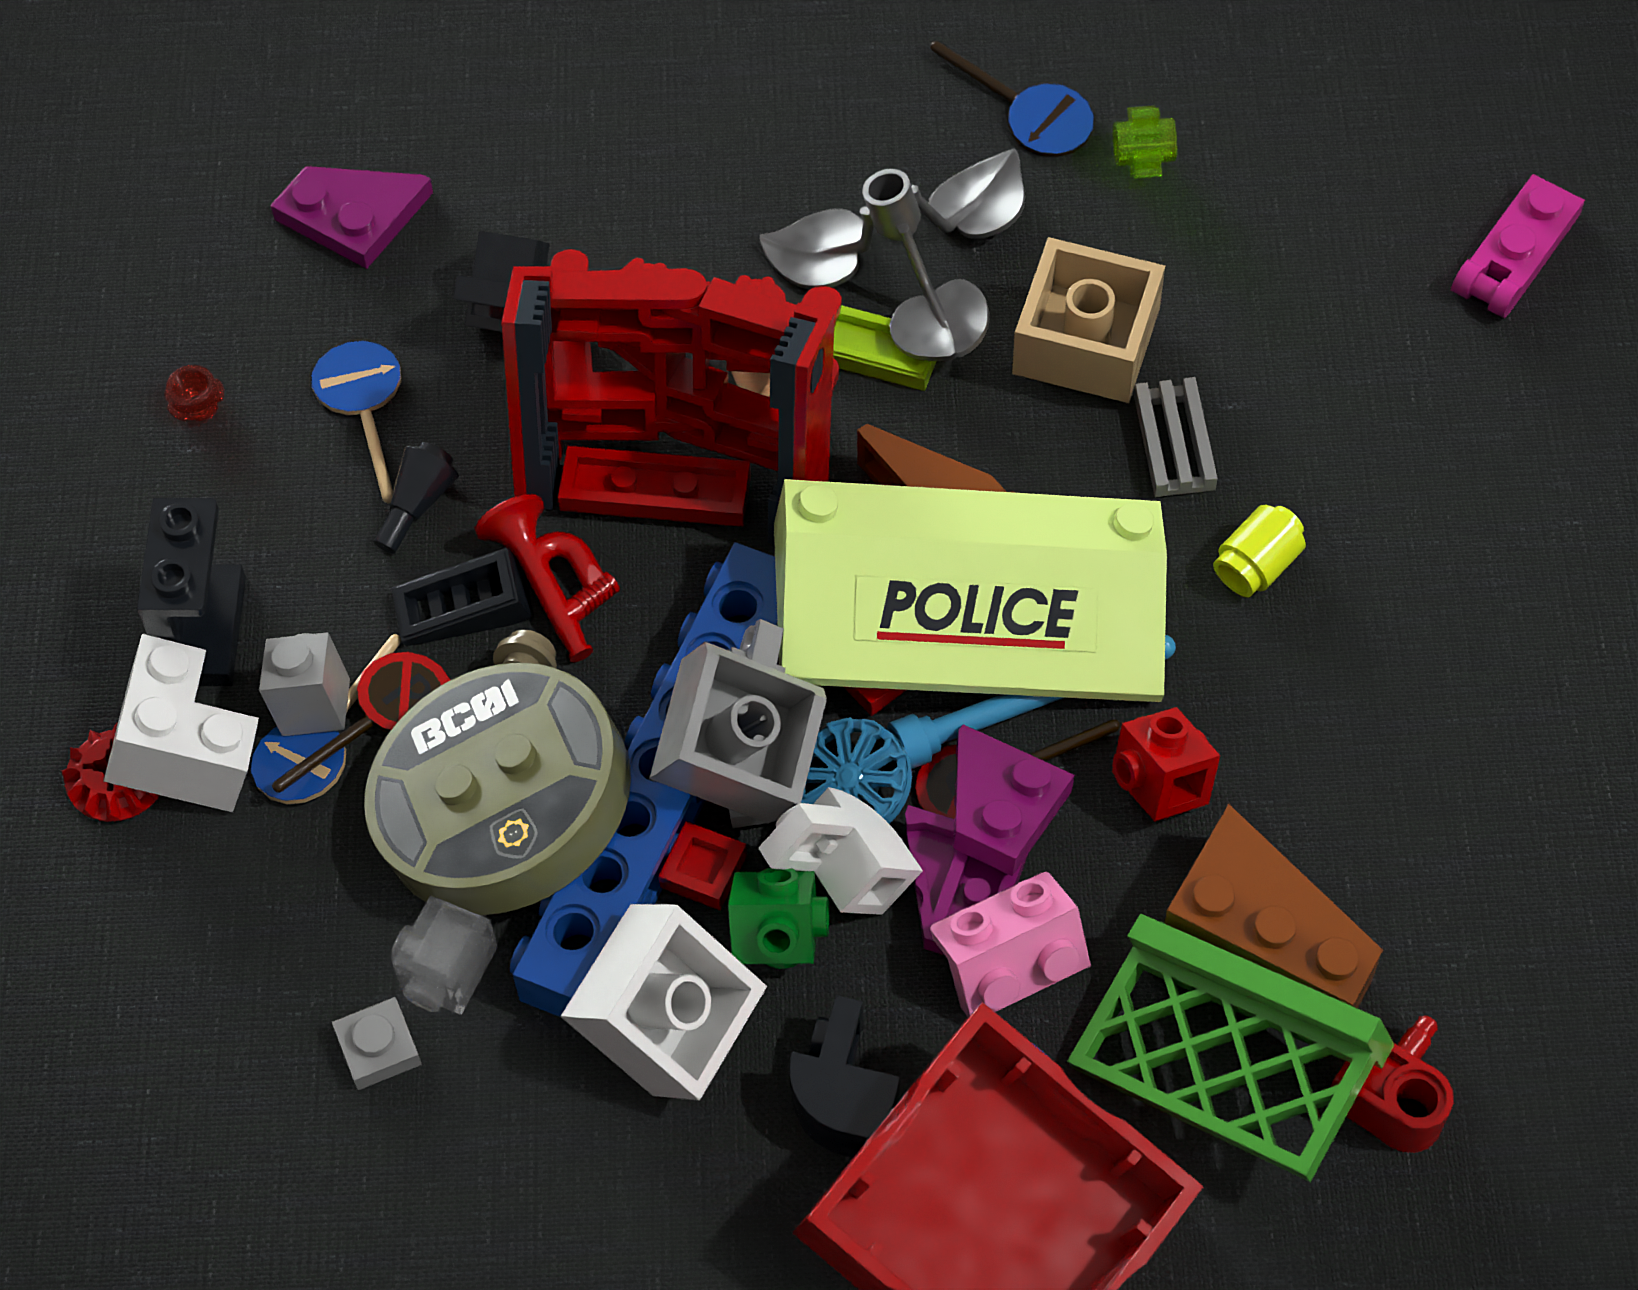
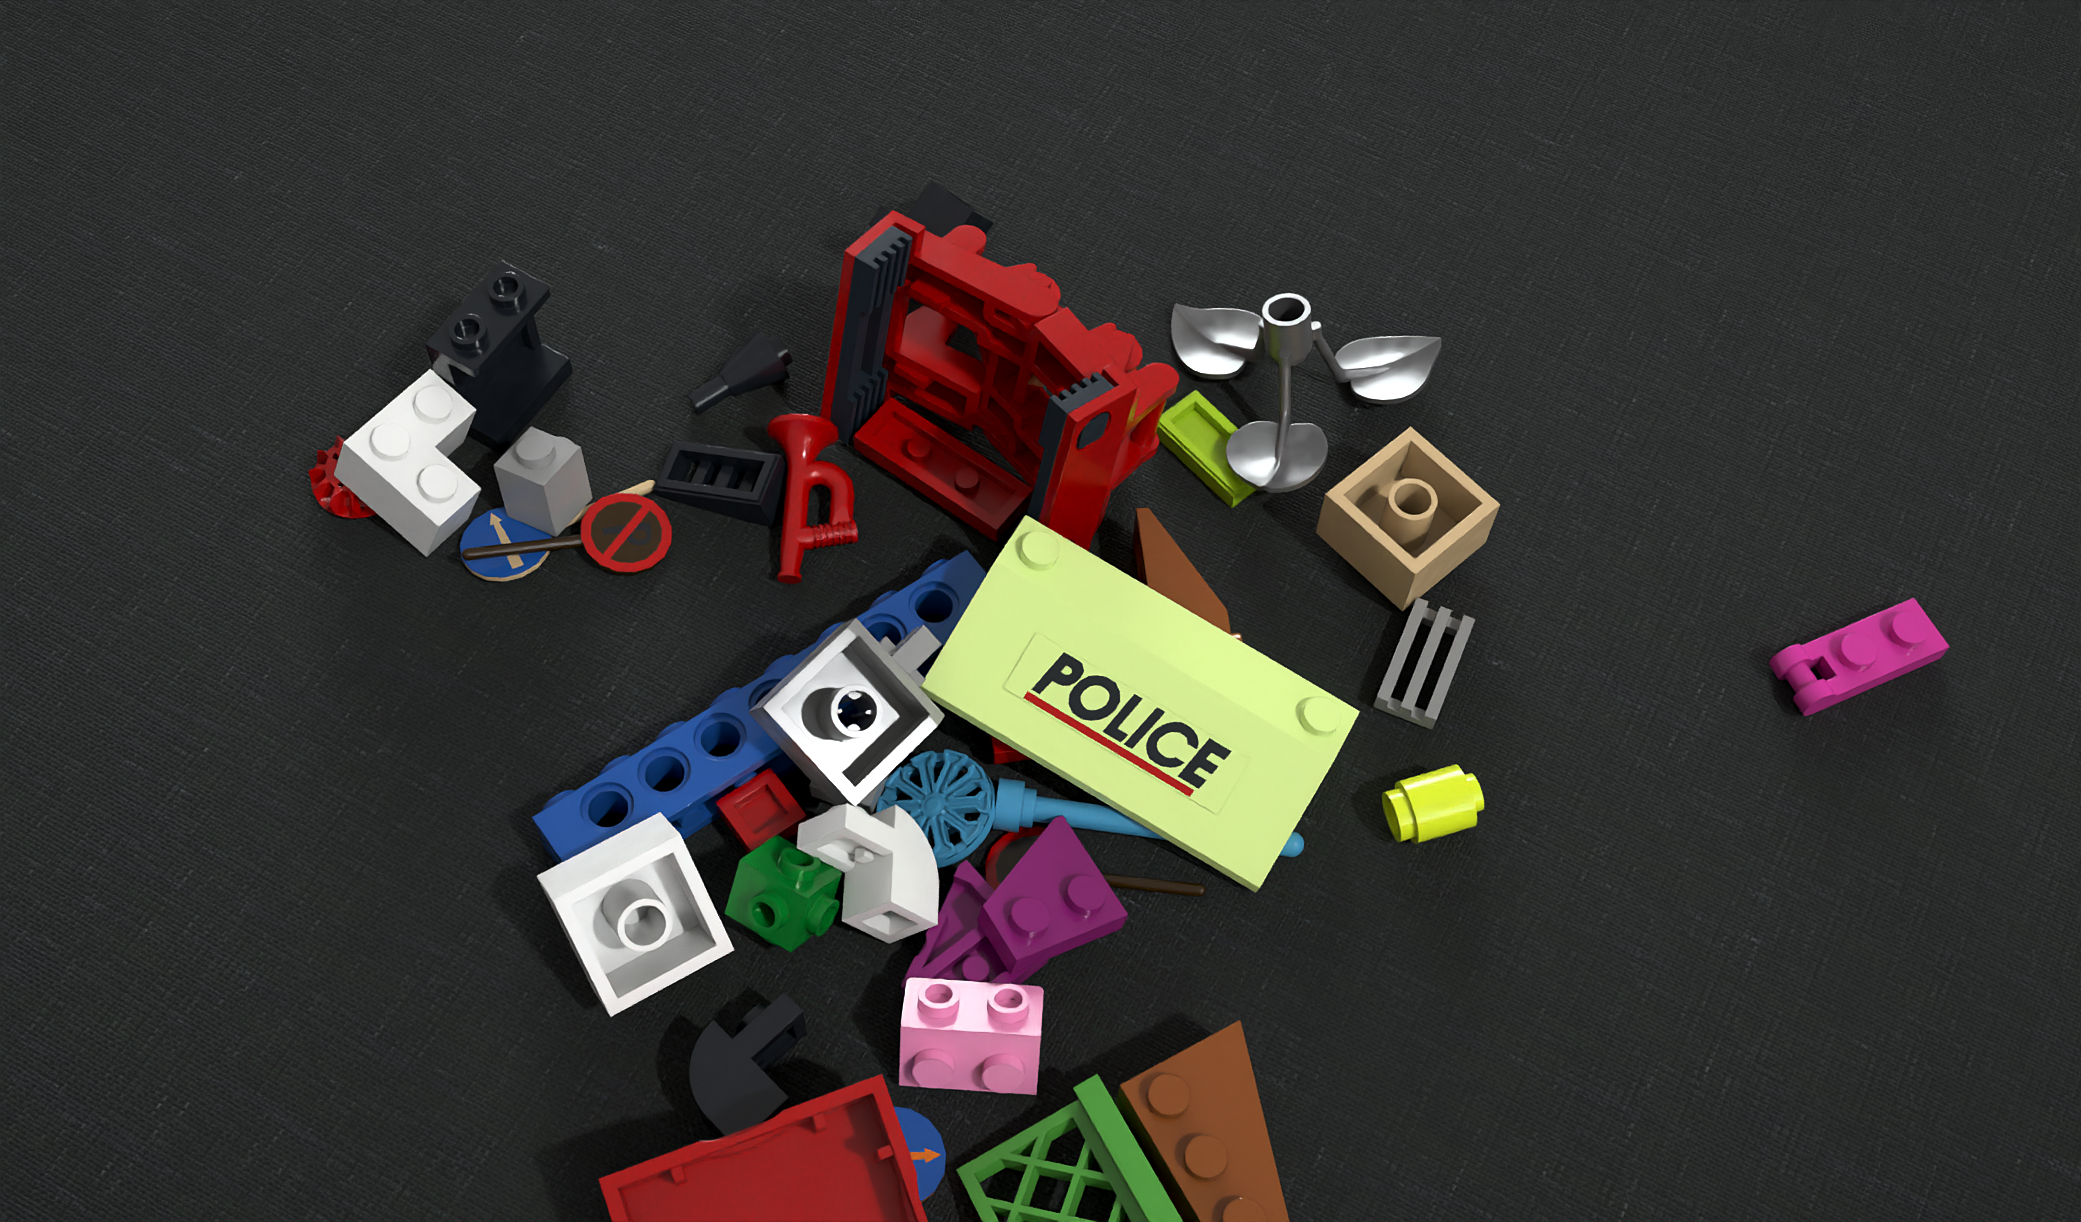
camera: 25 degrees right, 0 degrees up
(189, 382) = (629, 201): clear red plate -> none
(351, 209) = (858, 117): magenta wing -> none
(358, 381) = (764, 258): blue piece -> none
(376, 1043) = (401, 813): light grey plate -> none
(443, 956) = (497, 770): clear brick -> none
(498, 788) = (631, 653): piece -> none
(525, 647) = (737, 557): dark tan plate -> none
(1043, 117) = (1489, 327): blue piece -> none
(1144, 141) = (1563, 389): clear neon green gear -> none
(1165, 763) = (1214, 950): red brick -> none

